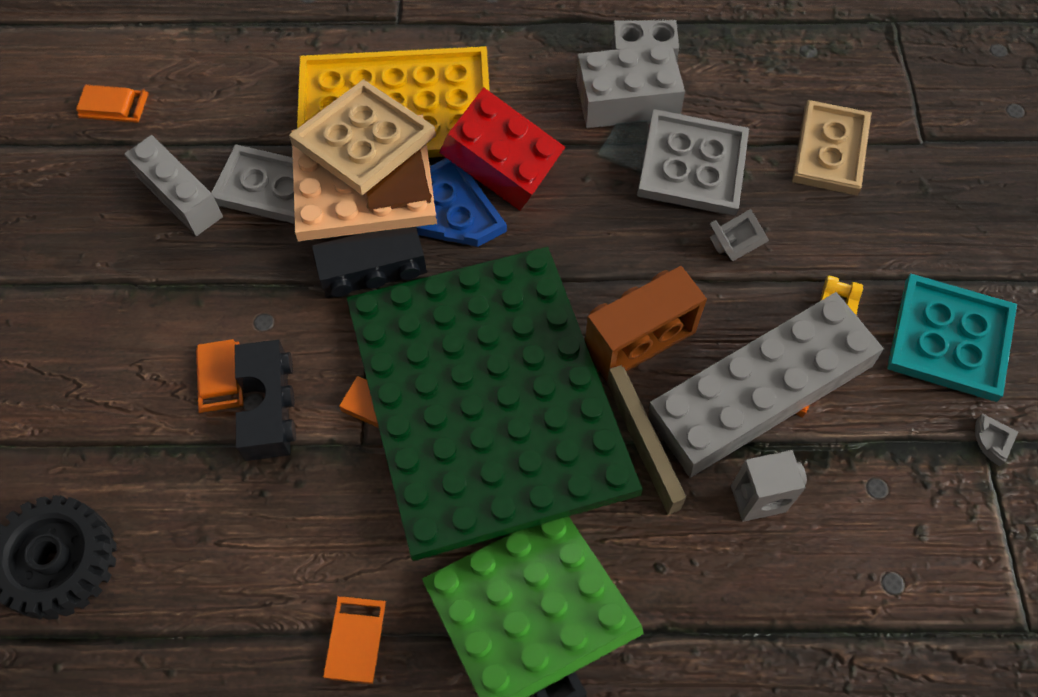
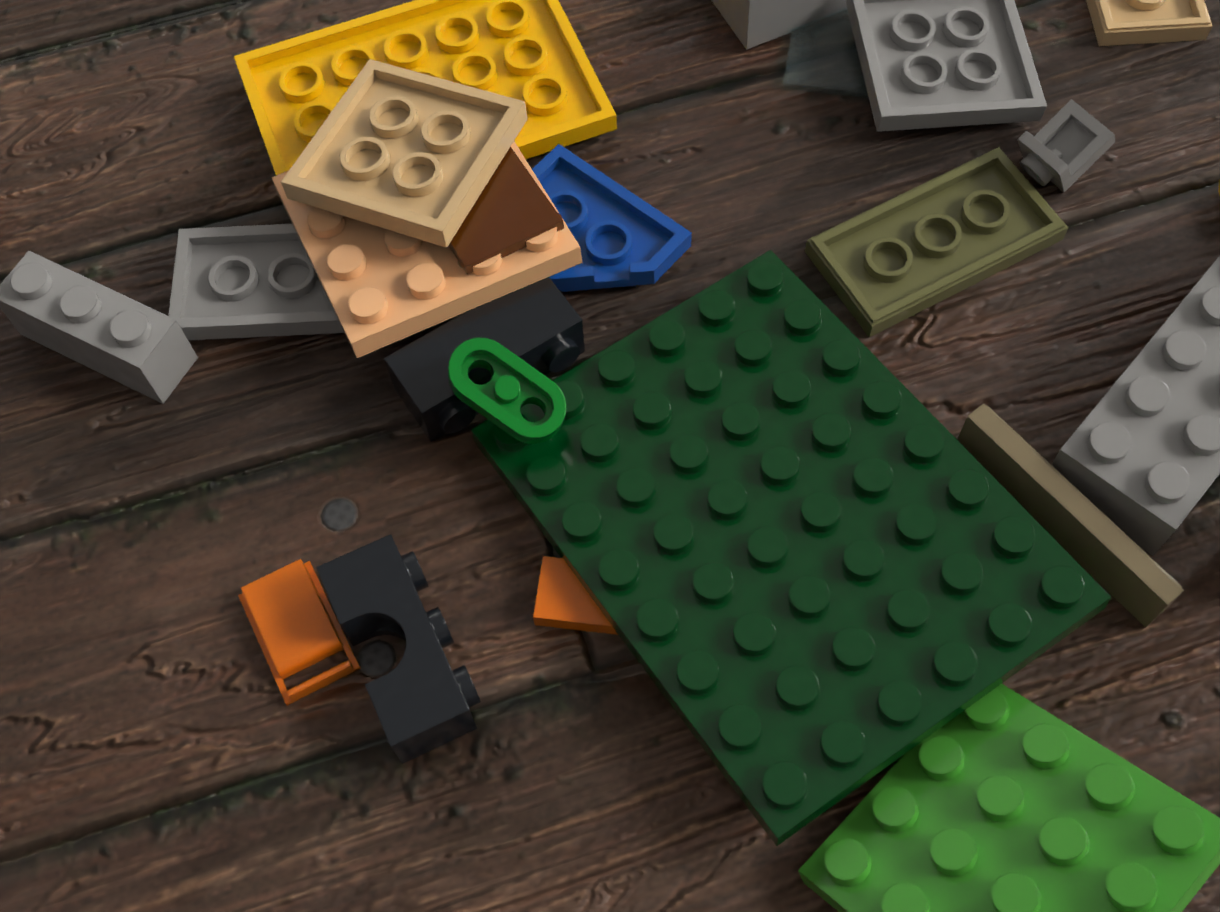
camera: 15 degrees left, 0 degrees up
(367, 282) = (511, 387): none -> green plate
(501, 149) = (640, 113): red brick -> none
(616, 265) = (934, 241): none -> olive tile
(644, 321) = (990, 319): dark orange brick -> none

